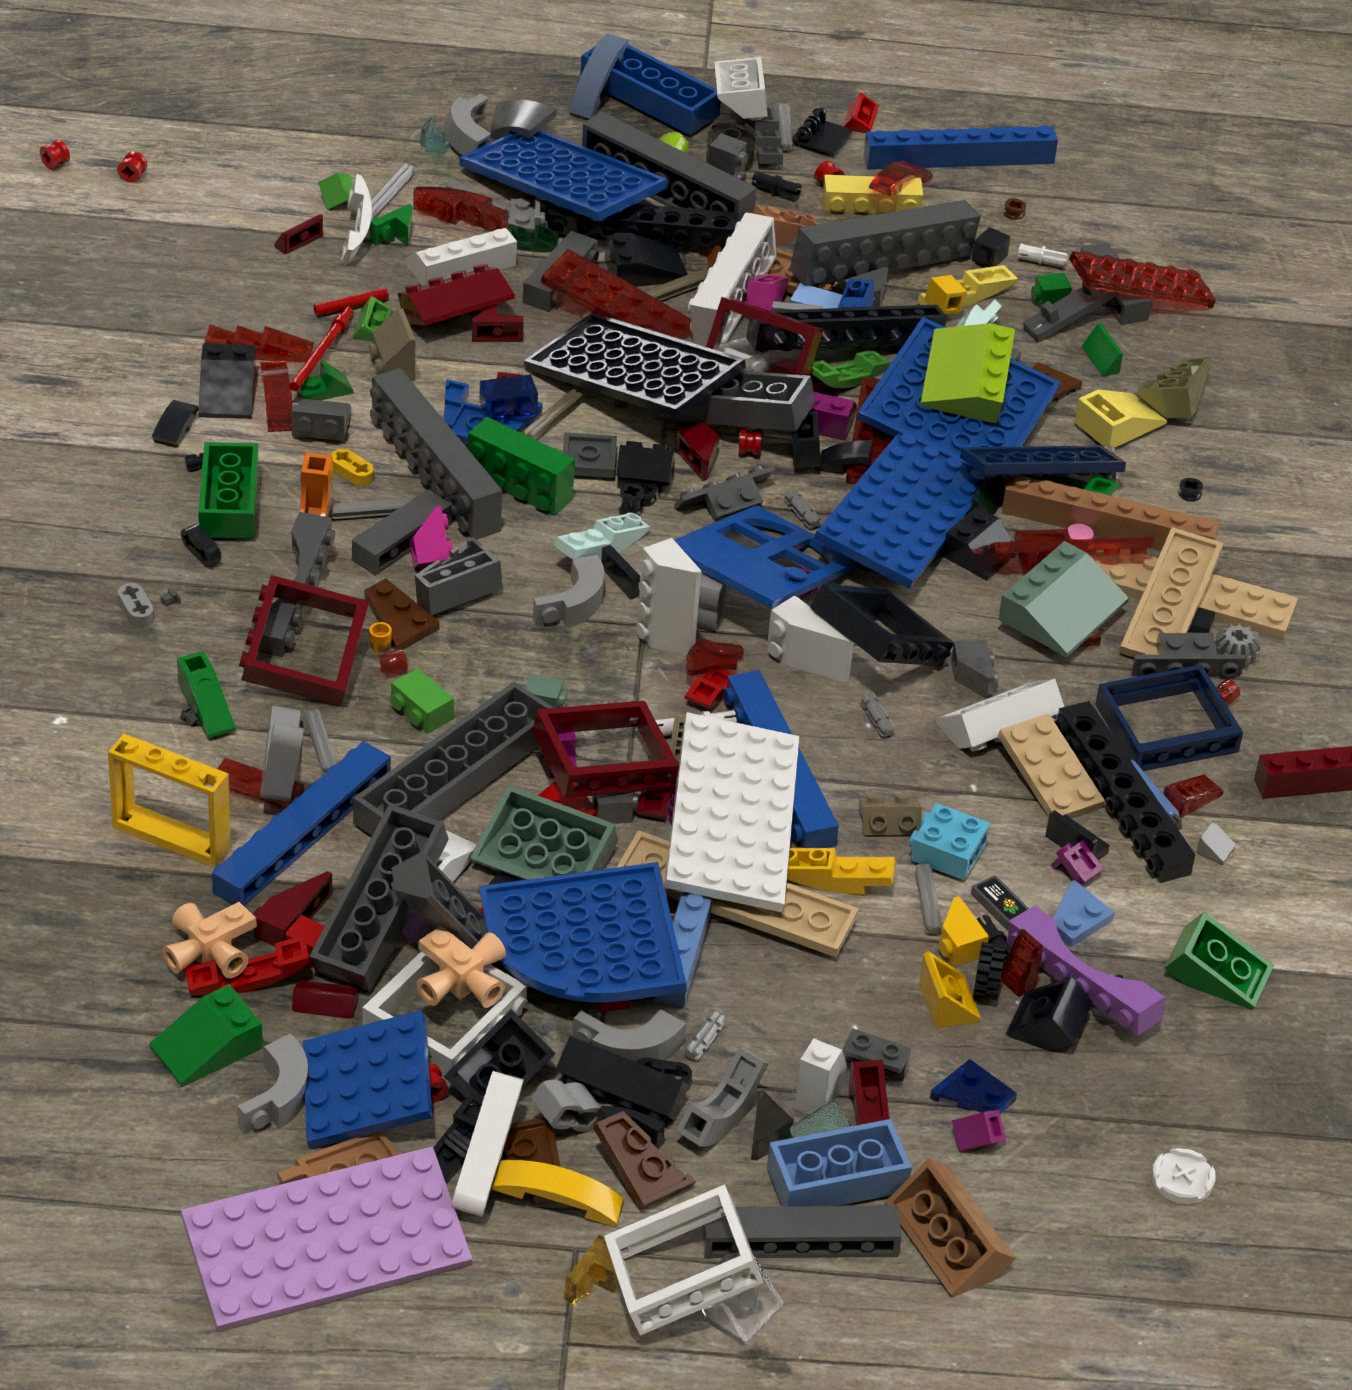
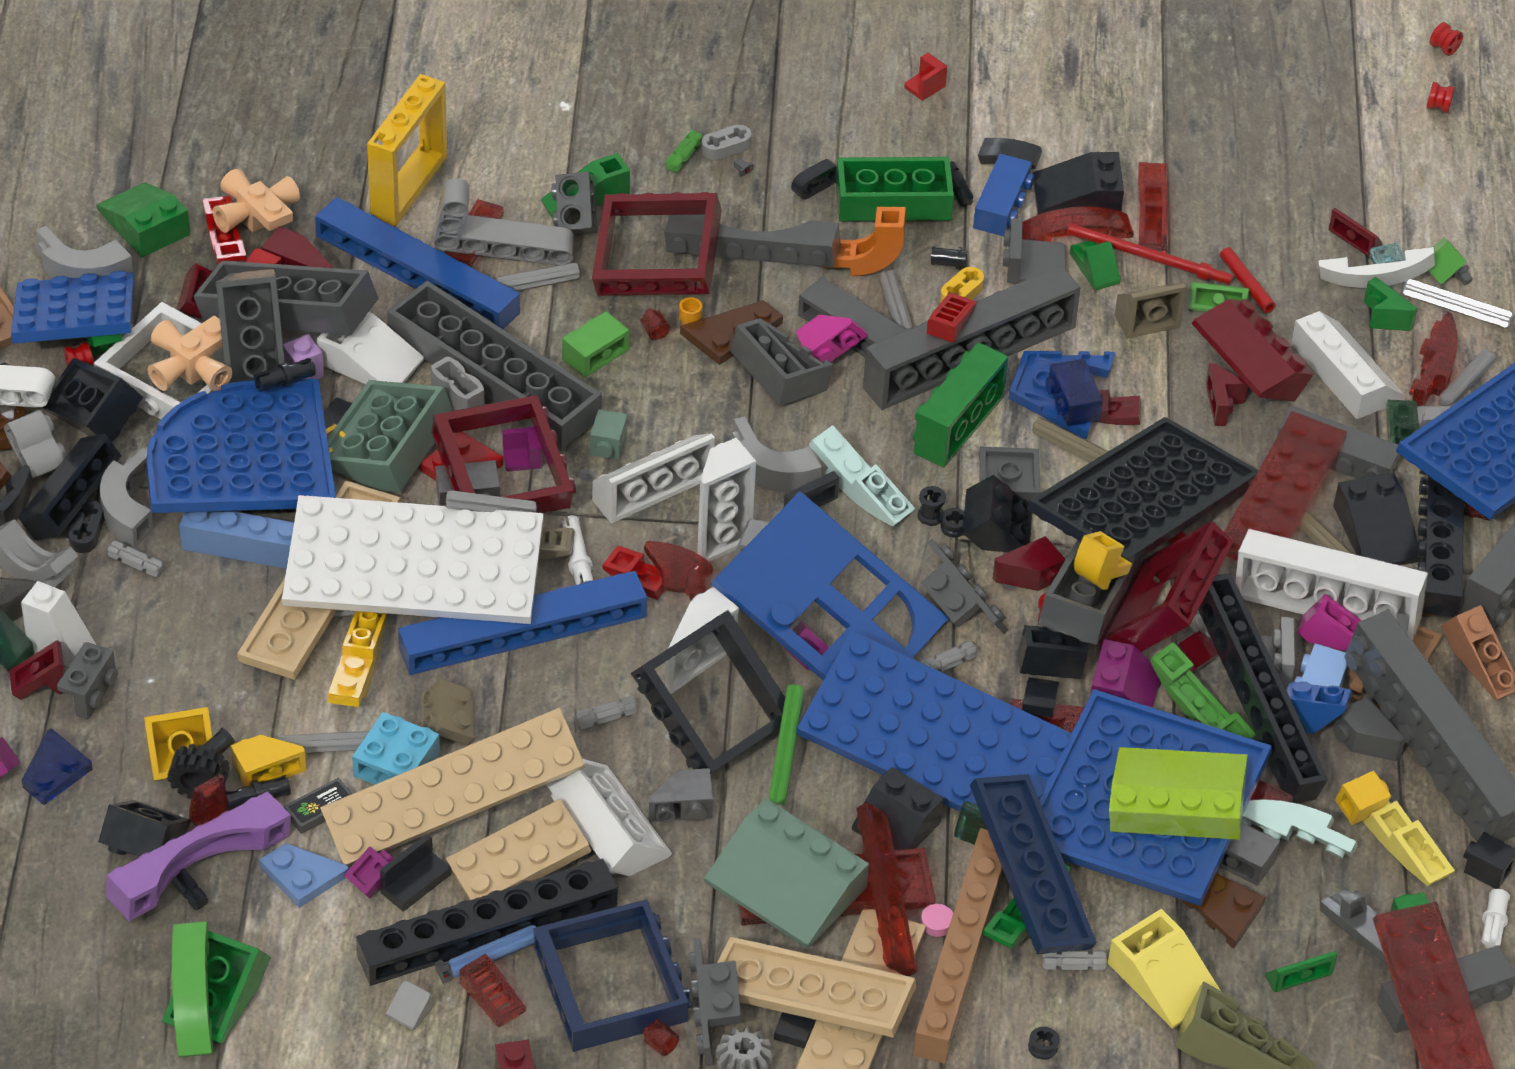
camera: 90 degrees right, 5 degrees up
(63, 464) = (930, 78): none -> red panel
(146, 634) = (683, 151): none -> bright green axle
(232, 425) = (1003, 194): none -> blue brick
(240, 695) = (582, 202): none -> dark grey brick
(334, 220) = (1386, 254): none -> clear light blue plate
(447, 441) = (948, 322): none -> red slope
(484, 790) = (461, 388): none -> light grey brick
(486, 901) = (284, 374): none -> black pin
(600, 657) = (652, 478): none -> white slope
(676, 748) = (486, 503): none -> light grey axle
(761, 364) = (1100, 559): none -> yellow brick
(919, 597) = (786, 744): none -> bright green axle
(959, 961) = (220, 741): none -> black pin
(1001, 794) = (453, 787): none -> tan plate
(1236, 960) = (190, 989): none -> bright green slope

